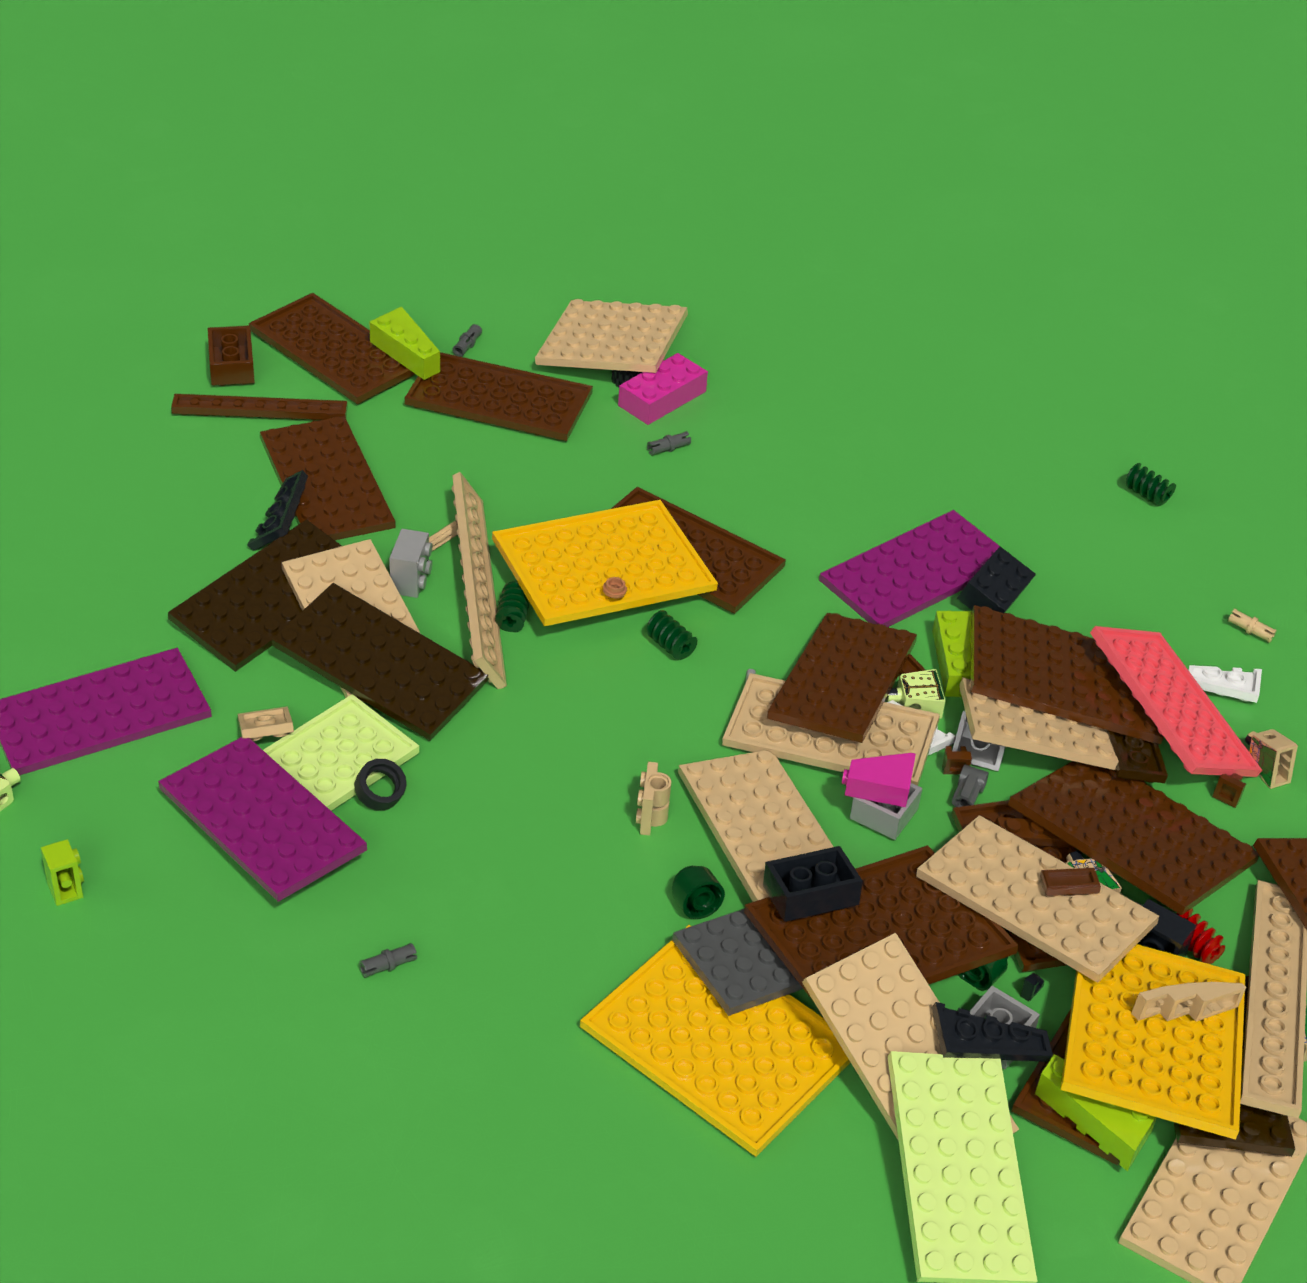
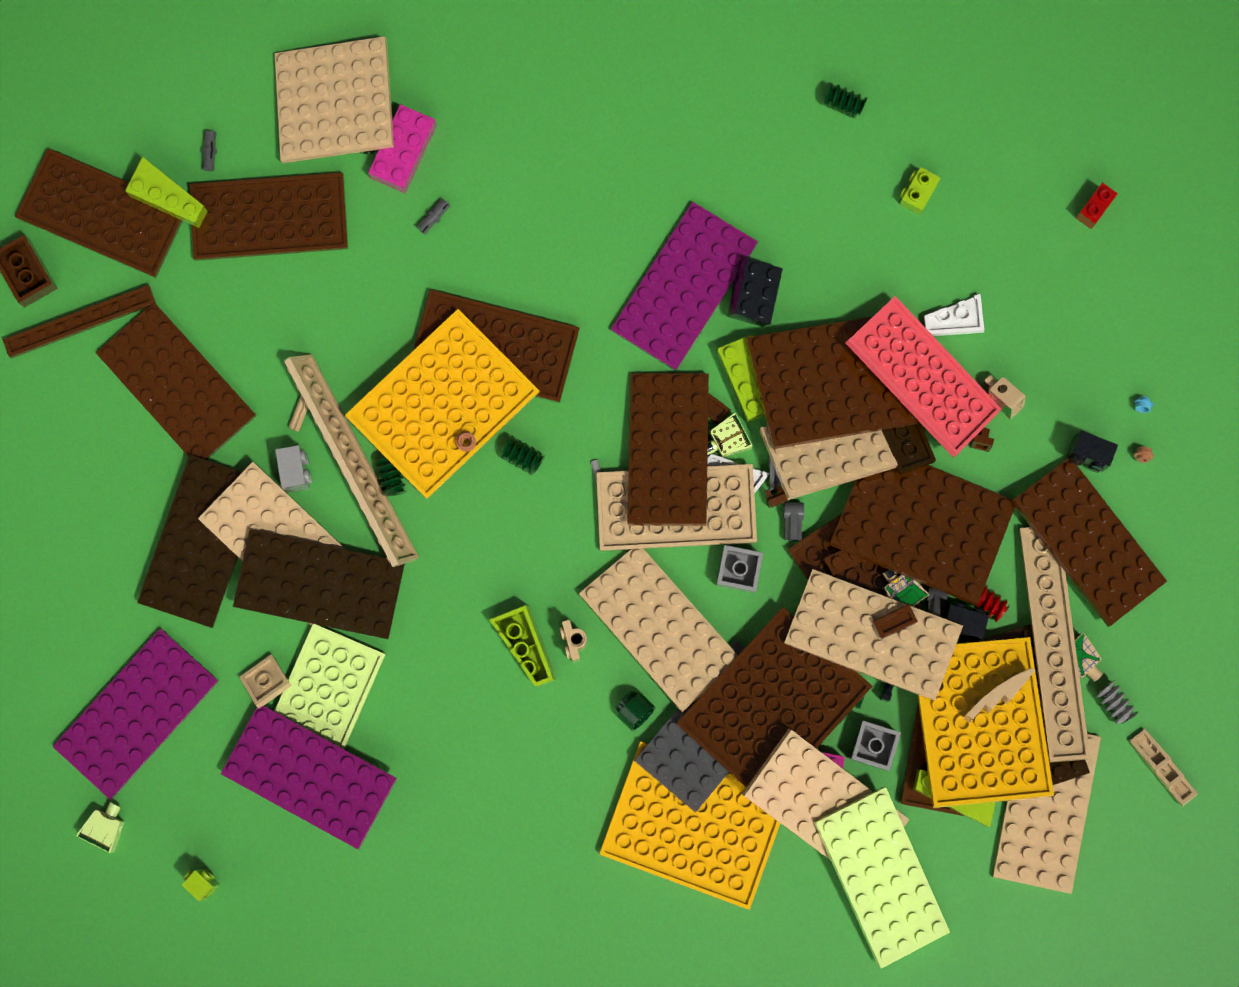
camera: 15 degrees left, 40 degrees up
(281, 512) = (167, 460): black wing -> none
(388, 768) = (361, 703): black tyre -> none
(388, 960) = (451, 855): dark grey pin -> none
(591, 785) = (525, 643): none -> lime wedge
(812, 883) = (718, 697): black brick -> none
(880, 778) = (734, 564): dark pink slope -> none
(979, 1037) = (871, 778): black wing -> none
(1213, 571) = (919, 191): none -> lime brick
(1252, 625) = (962, 243): tan pin -> none

